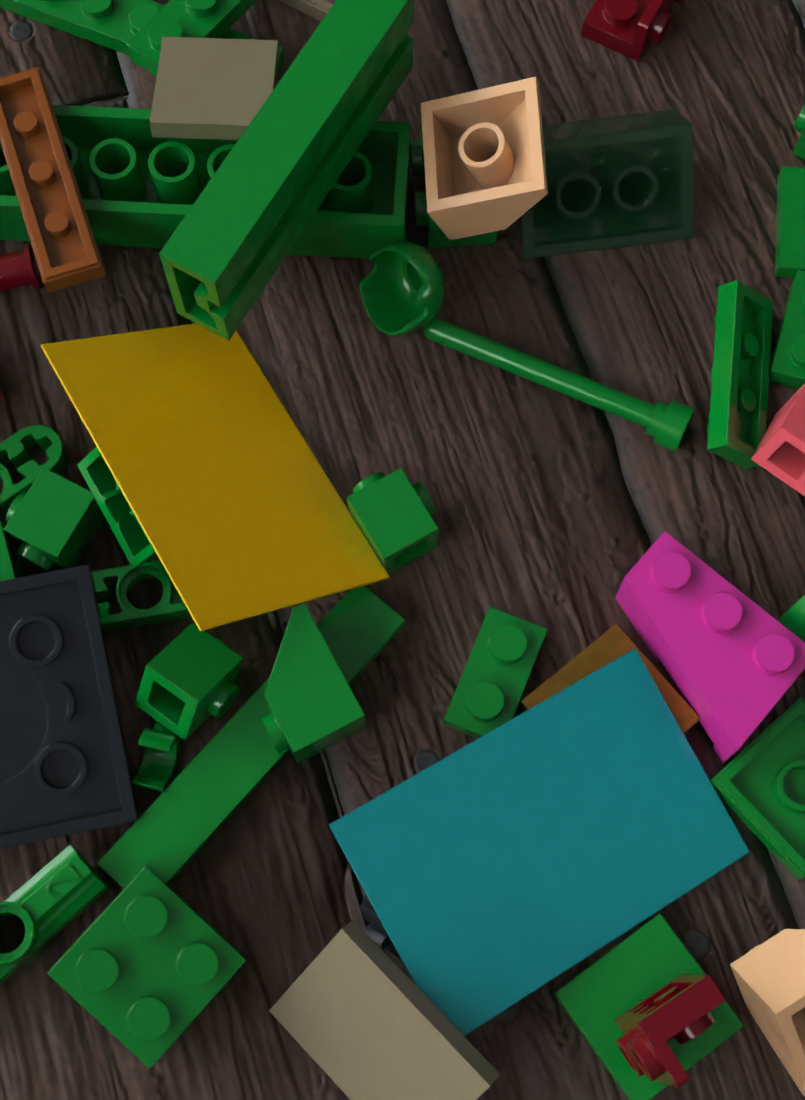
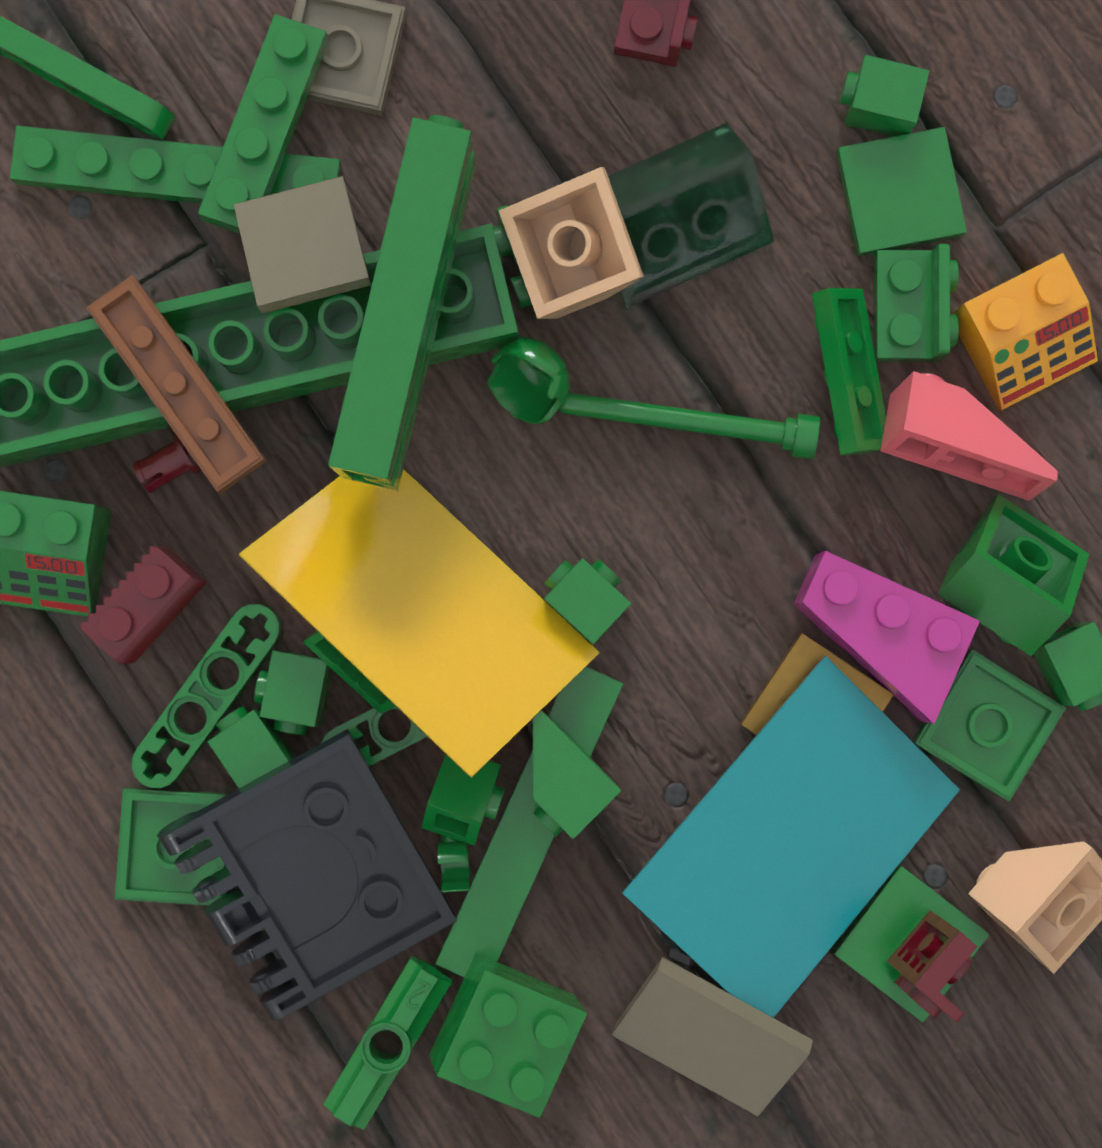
camera: 15 degrees left, 15 degrees up
(494, 674) = (712, 707): green plate -> none

